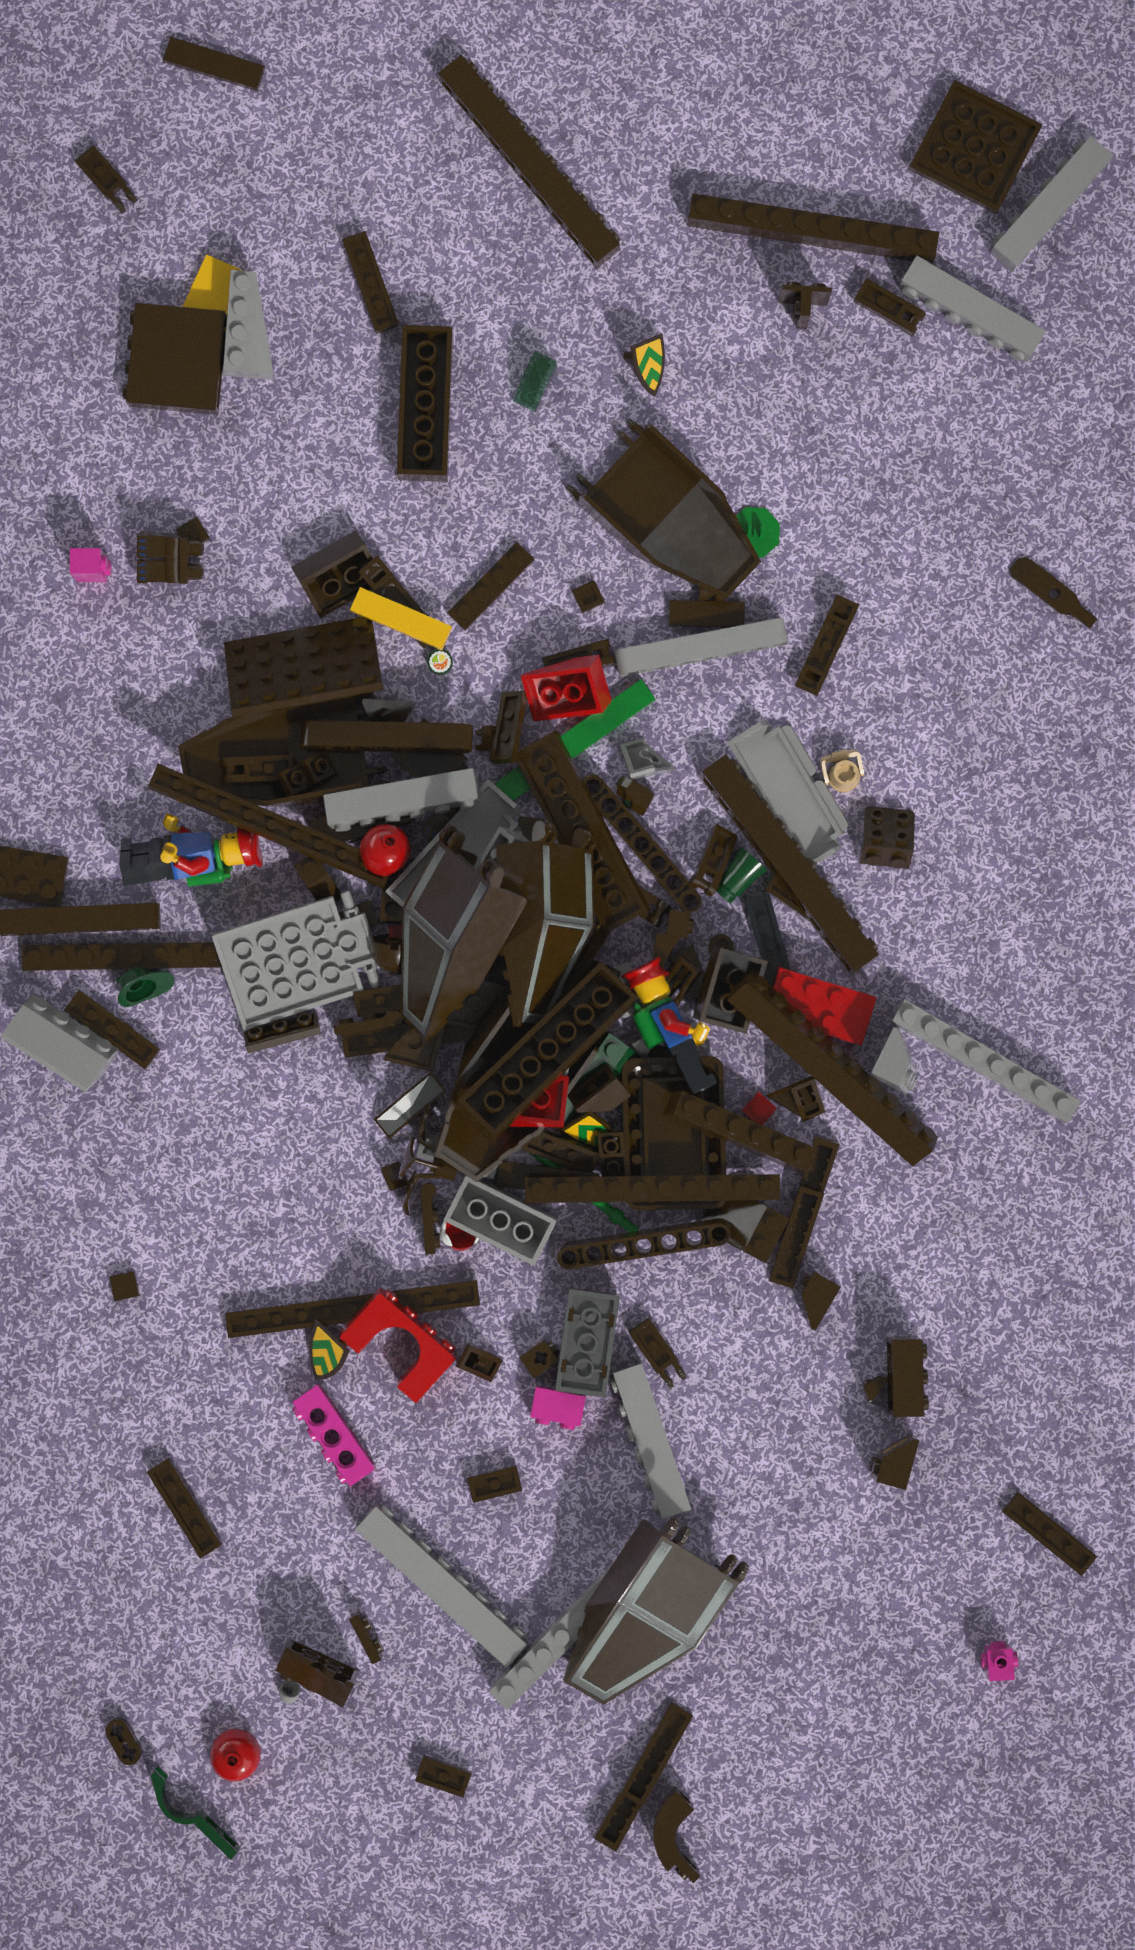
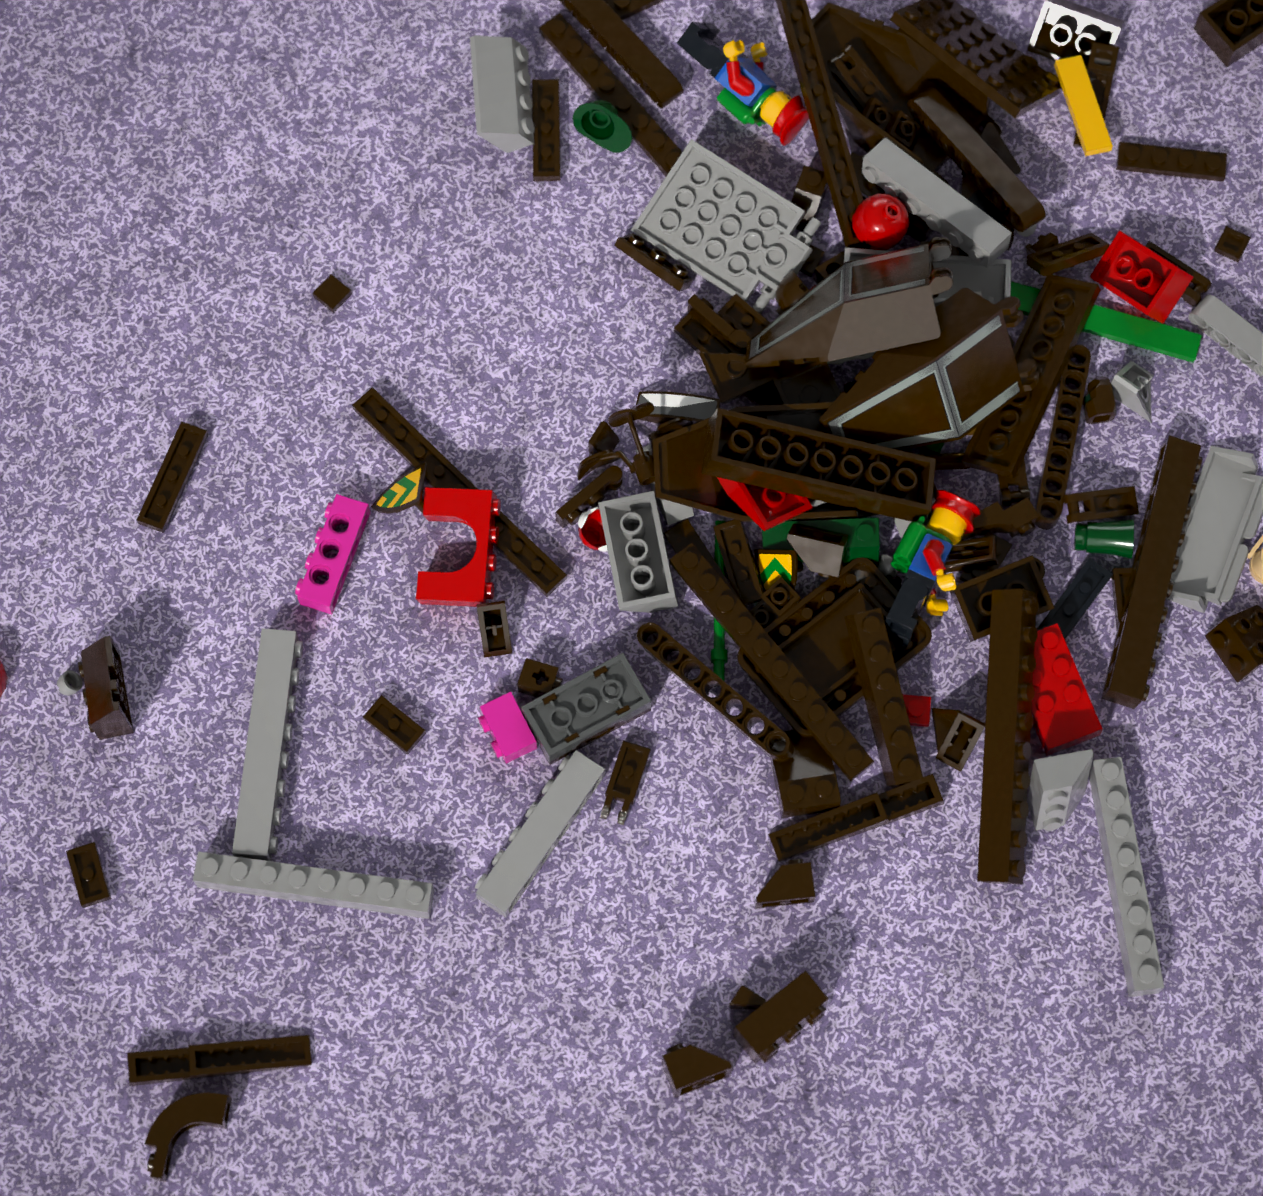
camera: 55 degrees right, 15 degrees down
(362, 1627) = (164, 722): dark brown plate -> none
(440, 662) = (1073, 167): tile -> none
(648, 1611) = (378, 937): dark brown windscreen -> none

